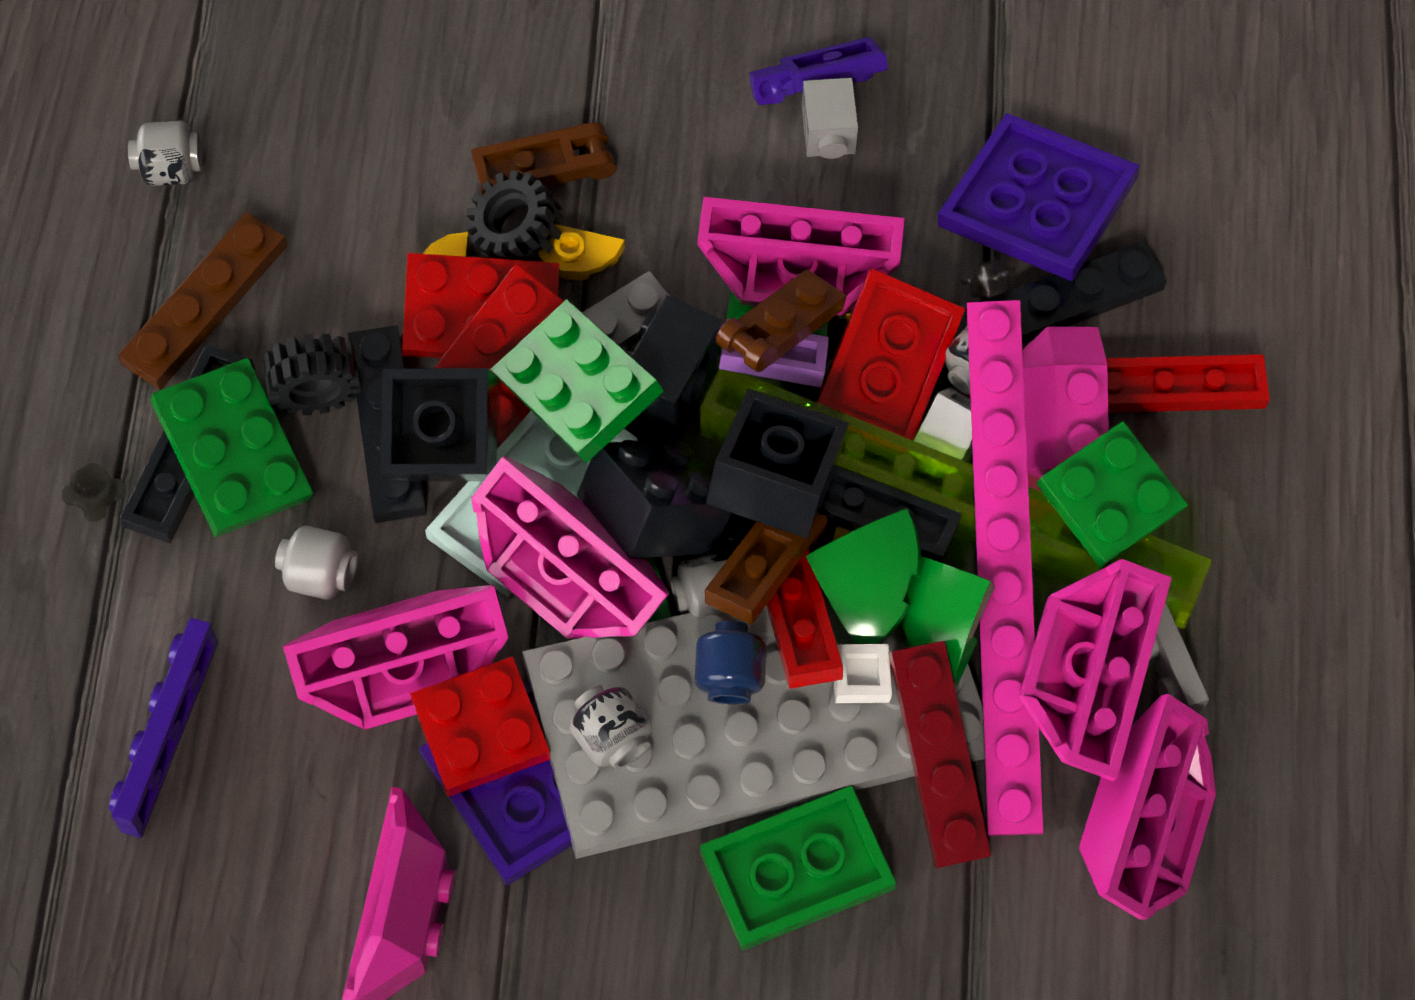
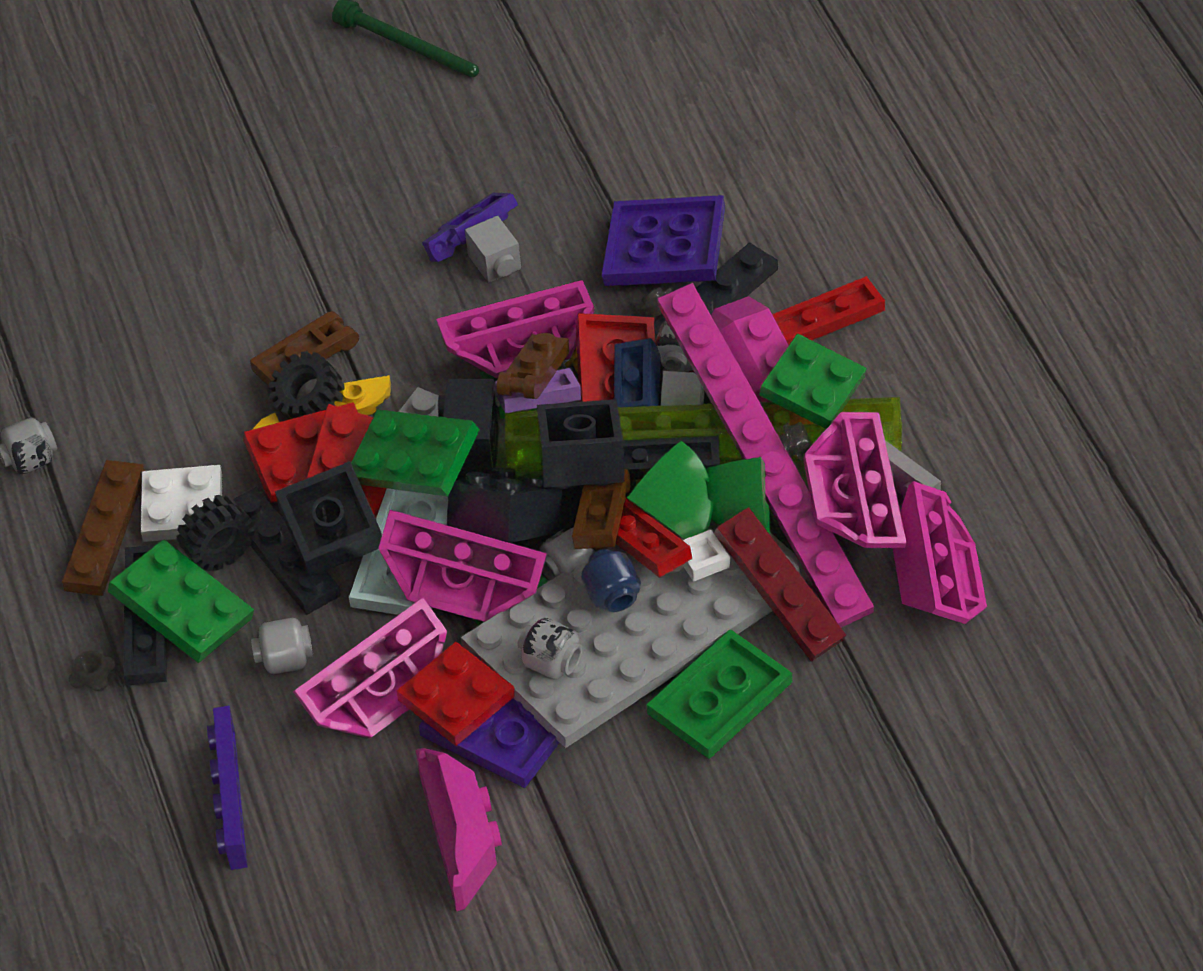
camera: 20 degrees left, 15 degrees down
(303, 298) = (171, 495): none -> white plate
(905, 384) = (637, 373): none -> dark blue slope
(1051, 568) = (796, 439): none -> clear smoke plate

